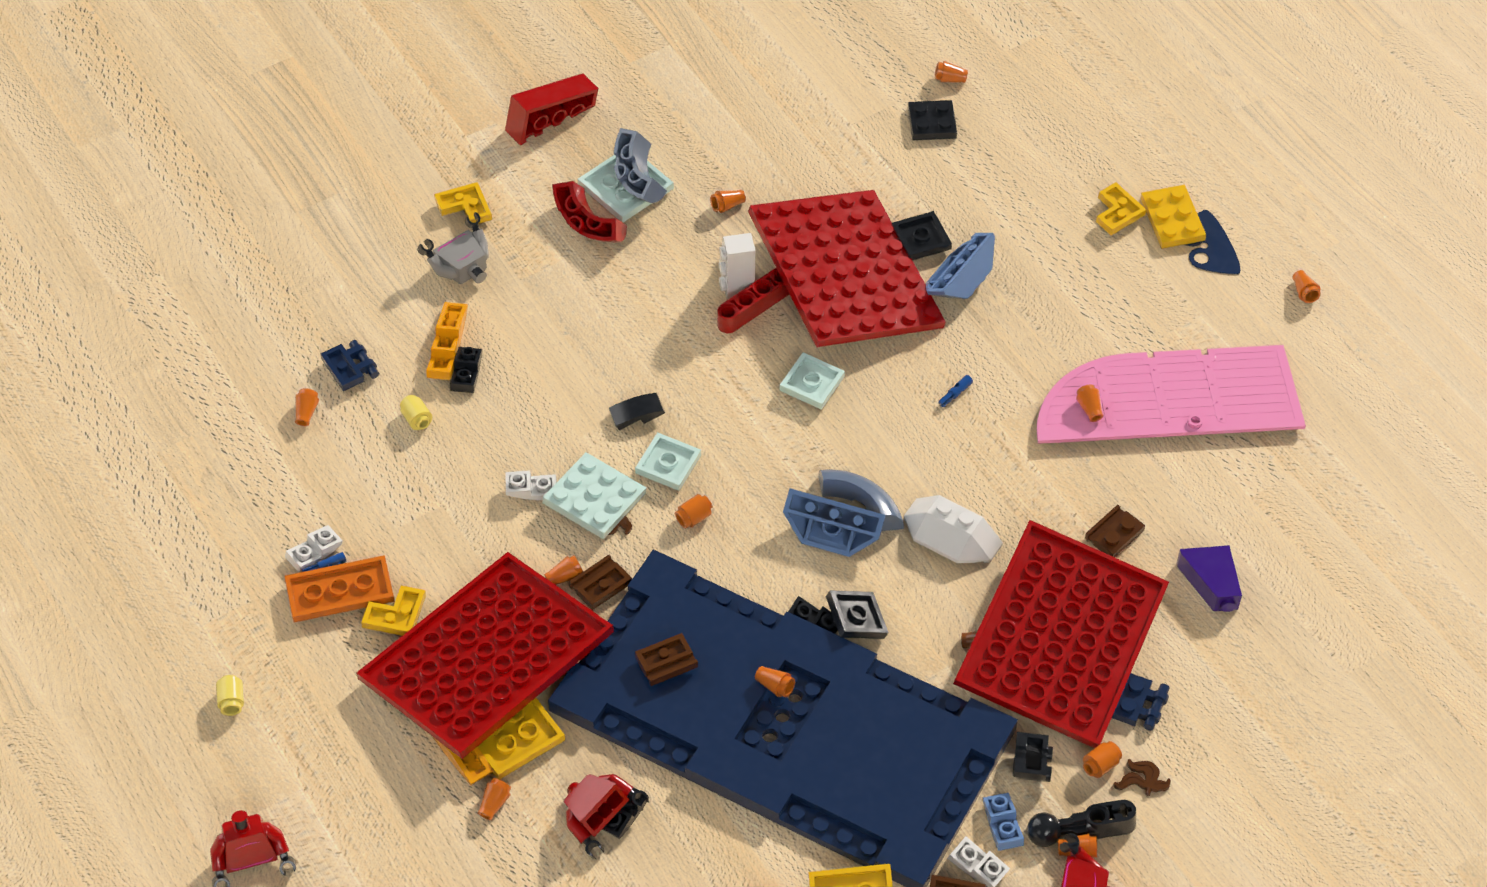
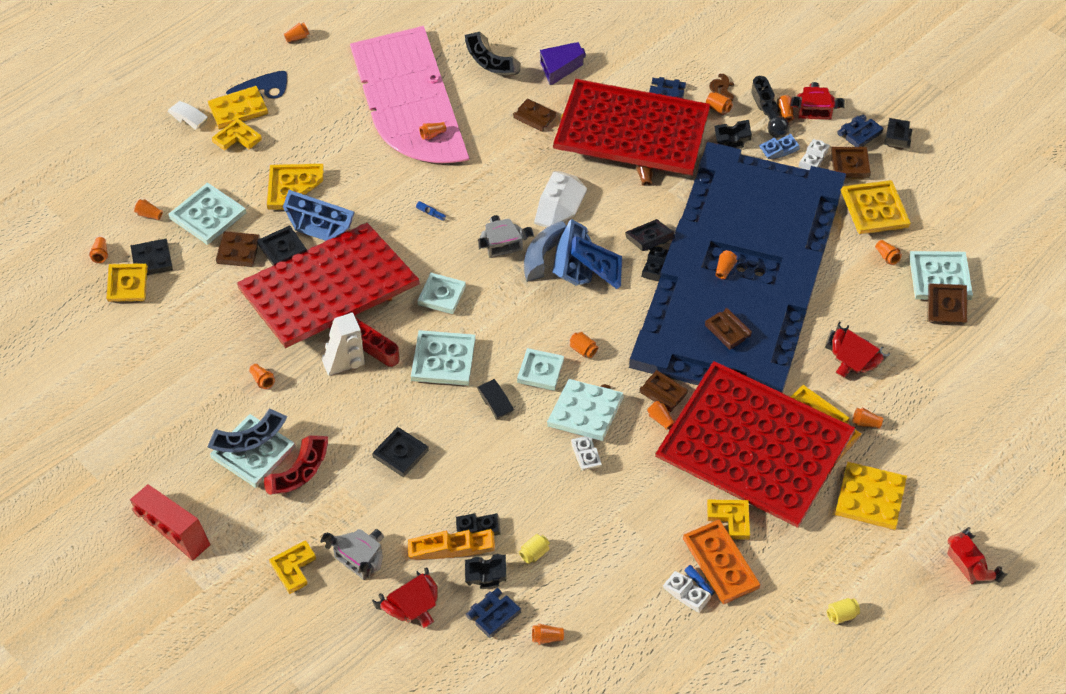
camera: 100 degrees left, 0 degrees up
(381, 775) = (871, 495): none -> yellow plate
(385, 293) = (411, 600): none -> red torso
(400, 361) = (486, 572): none -> black cylinder
(585, 311) = (400, 451): none -> black plate
(711, 368) = (443, 357): none -> light aqua plate
(820, 545) = (598, 259): none -> blue wing
(888, 449) = (503, 237): none -> light grey torso
(891, 91) = (126, 282): none -> yellow plate
(929, 195) = (237, 249): none -> reddish brown plate
(990, 171) = (207, 213): none -> light aqua plate
(1006, 116) = (146, 209): none -> orange cone
(1027, 255) = (293, 177): none -> yellow plate
(1162, 164) = (188, 113): none -> white slope
(1229, 492) = (481, 52): none -> black brick

